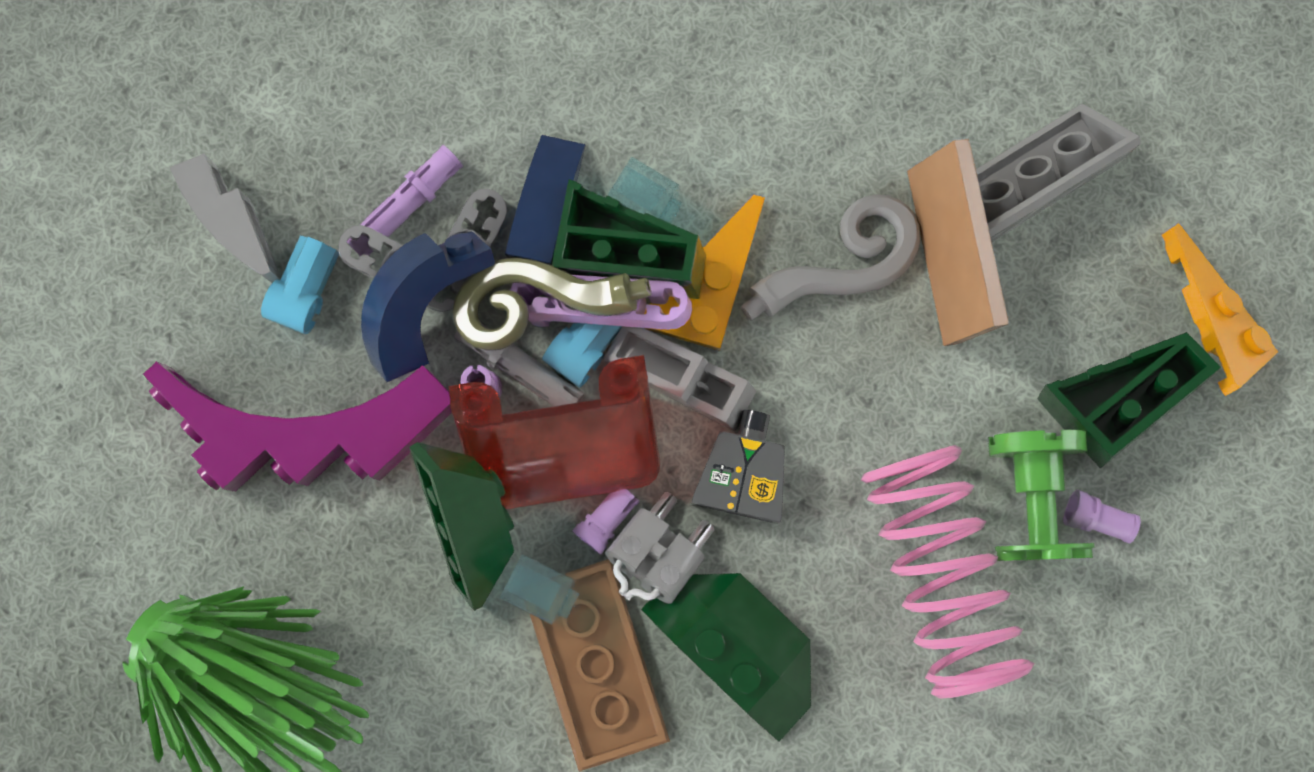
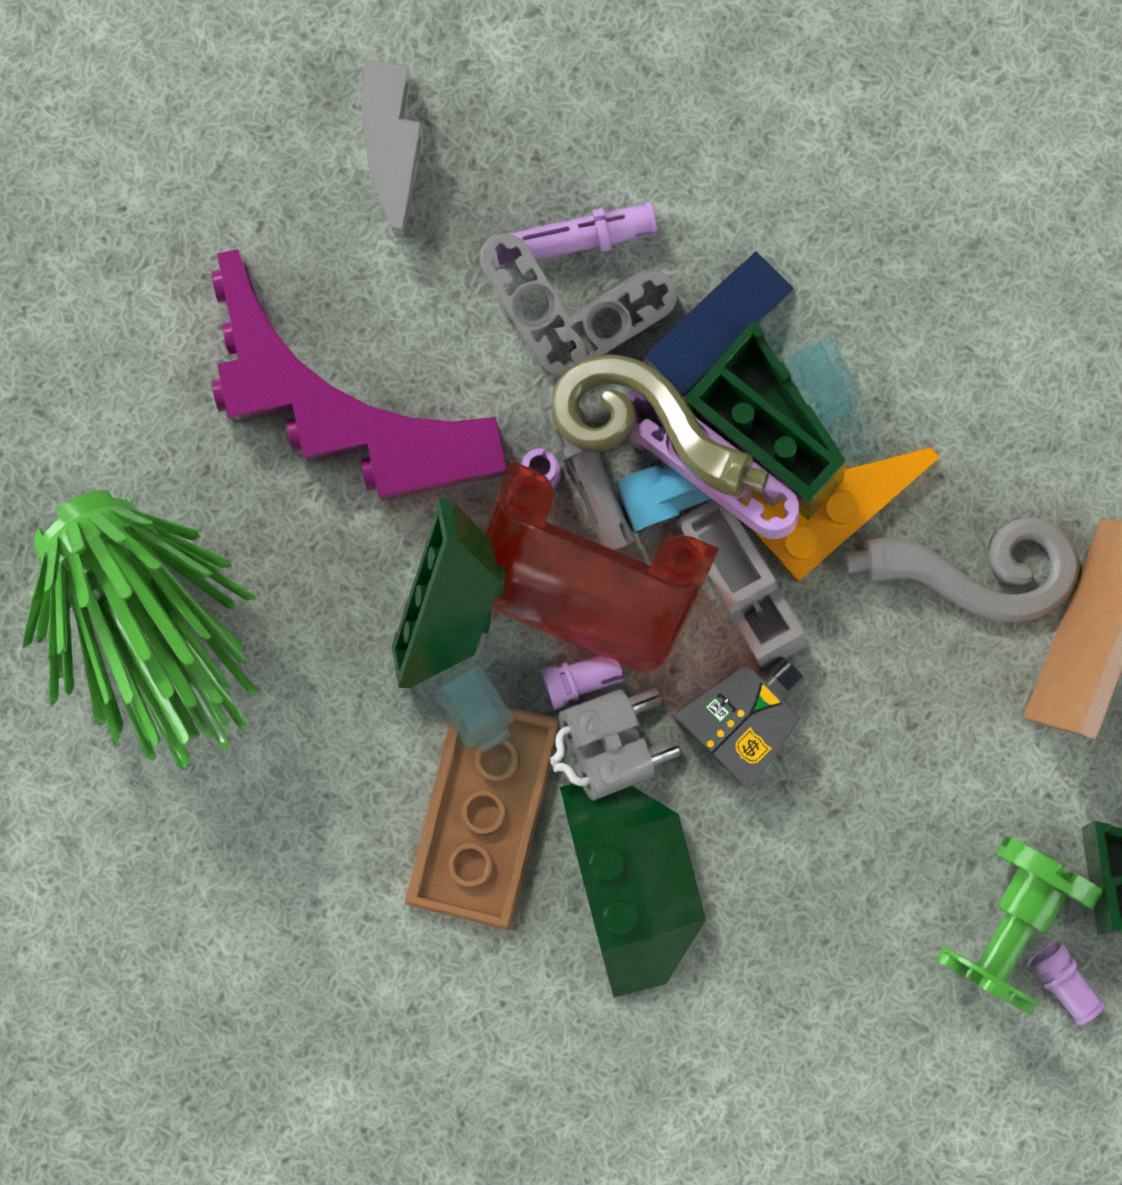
camera: 30 degrees right, 5 degrees up
(298, 293) = (415, 263): medium azure piece -> none
(404, 290) = (522, 333): dark blue arch -> none
(973, 680) = (846, 1059): bright pink piece -> none

